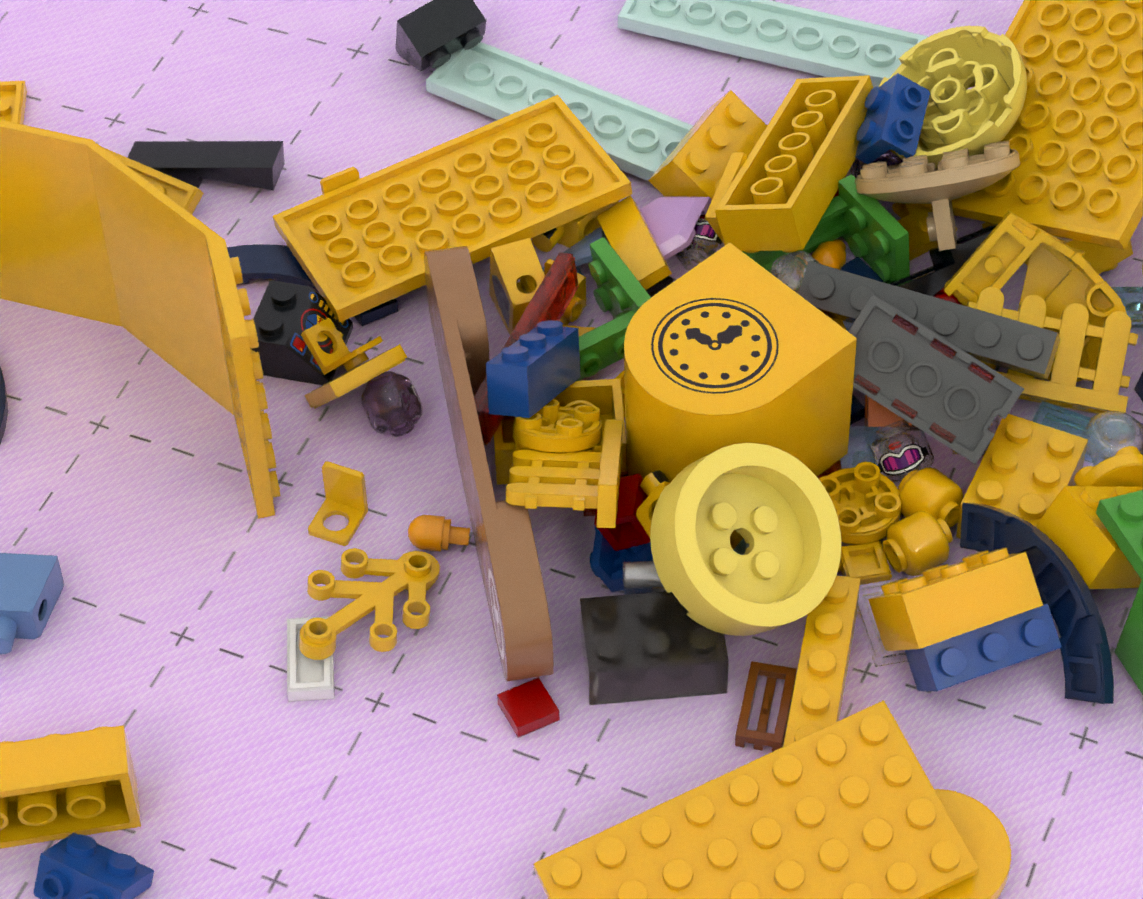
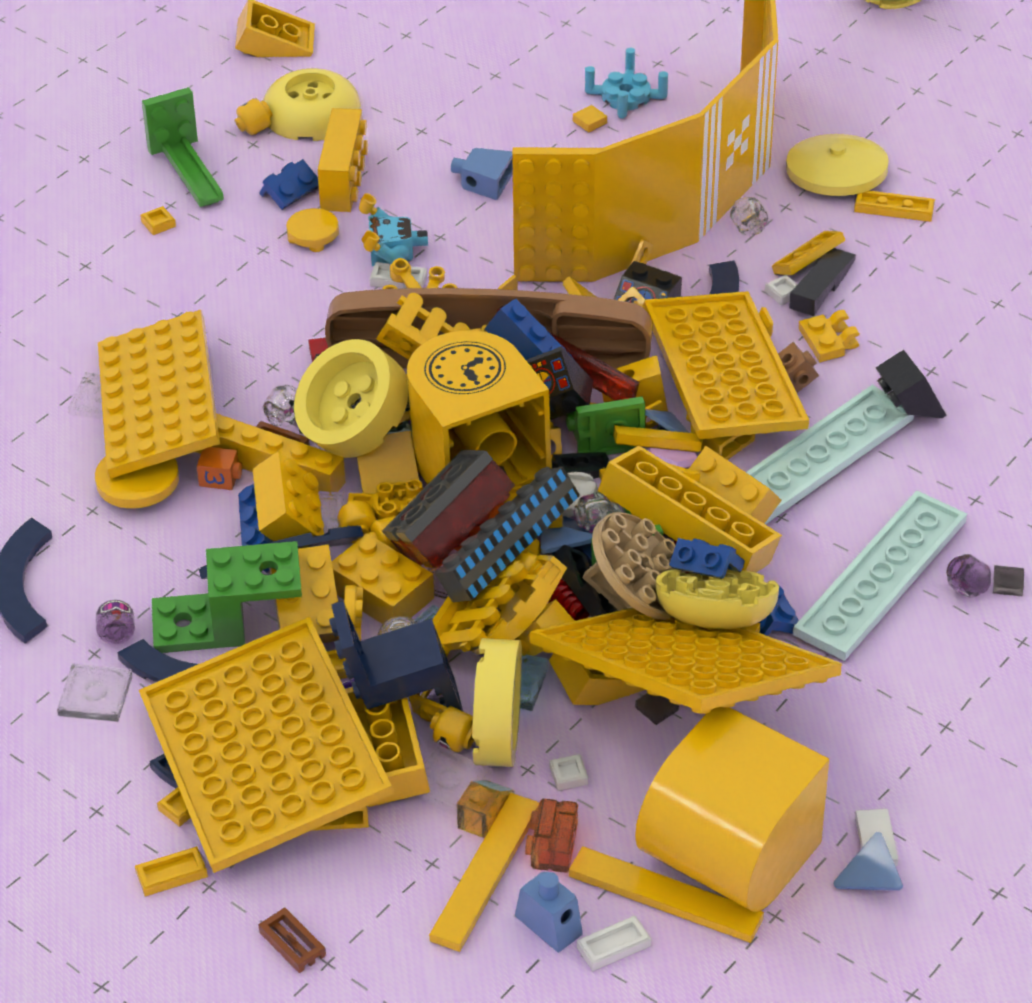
camera: 105 degrees right, 5 degrees down
(214, 807) = (312, 228): none -> yellow tile
(227, 206) = (780, 289): none -> white tile
(231, 677) = (389, 235): none -> torso
(325, 152) = (822, 336): none -> yellow plate
(416, 138) = (798, 366): none -> medium nougat brick
(602, 321) = (565, 379): none -> black slope
(698, 707) = (280, 406): none -> clear head

